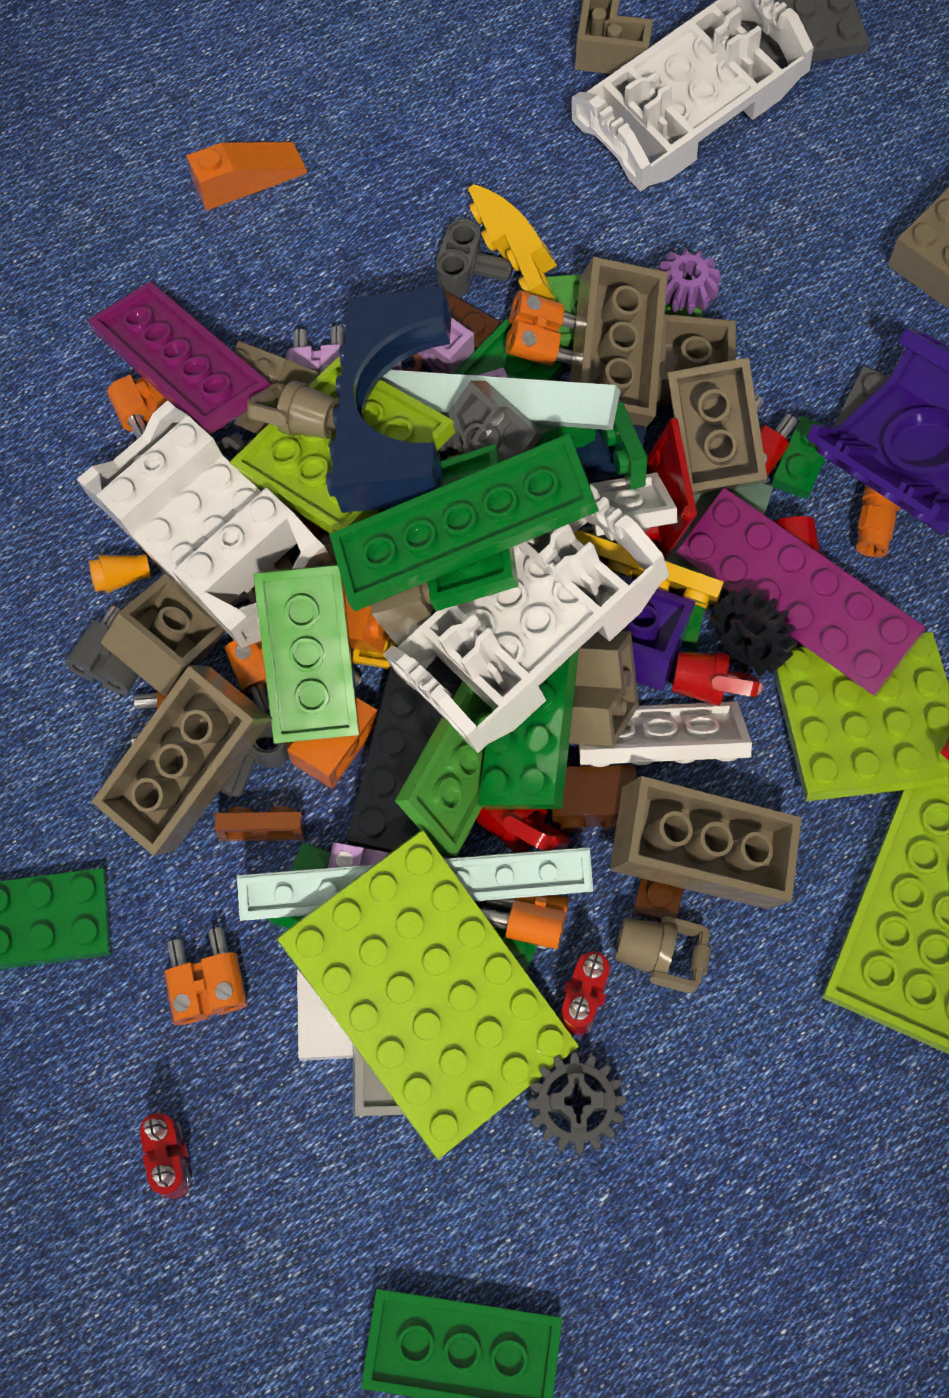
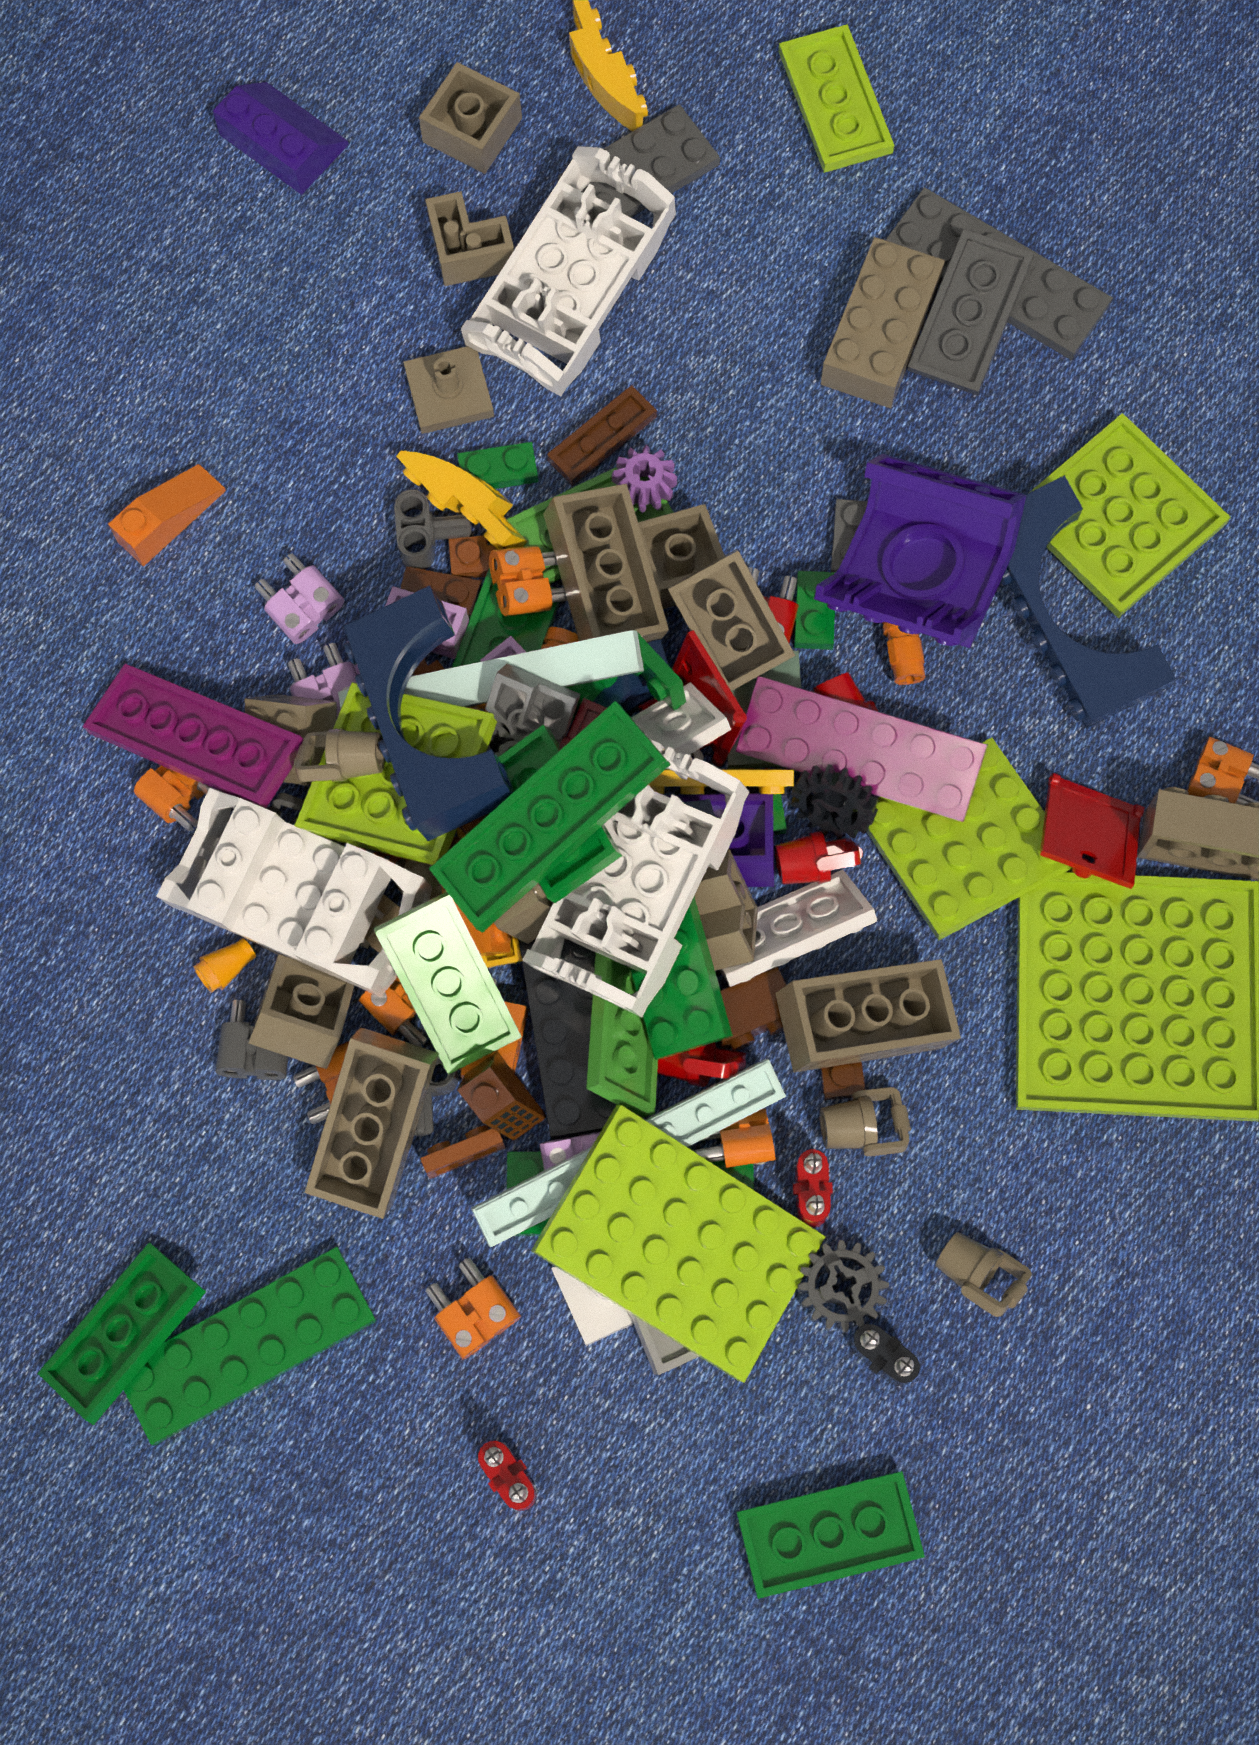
camera: 20 degrees left, 5 degrees up
(314, 786) = (500, 1098): none -> reddish brown slope
(330, 286) = (303, 603): none -> lavender piece
(497, 298) = (470, 556): none -> dark orange plate
(541, 154) = (448, 389): none -> dark tan tile
(564, 233) = (502, 465): none -> green plate
(591, 1190) = (884, 1355): none -> black piece
(668, 234) = (601, 435): none -> reddish brown plate
(717, 1139) = (973, 1267): none -> dark tan piece

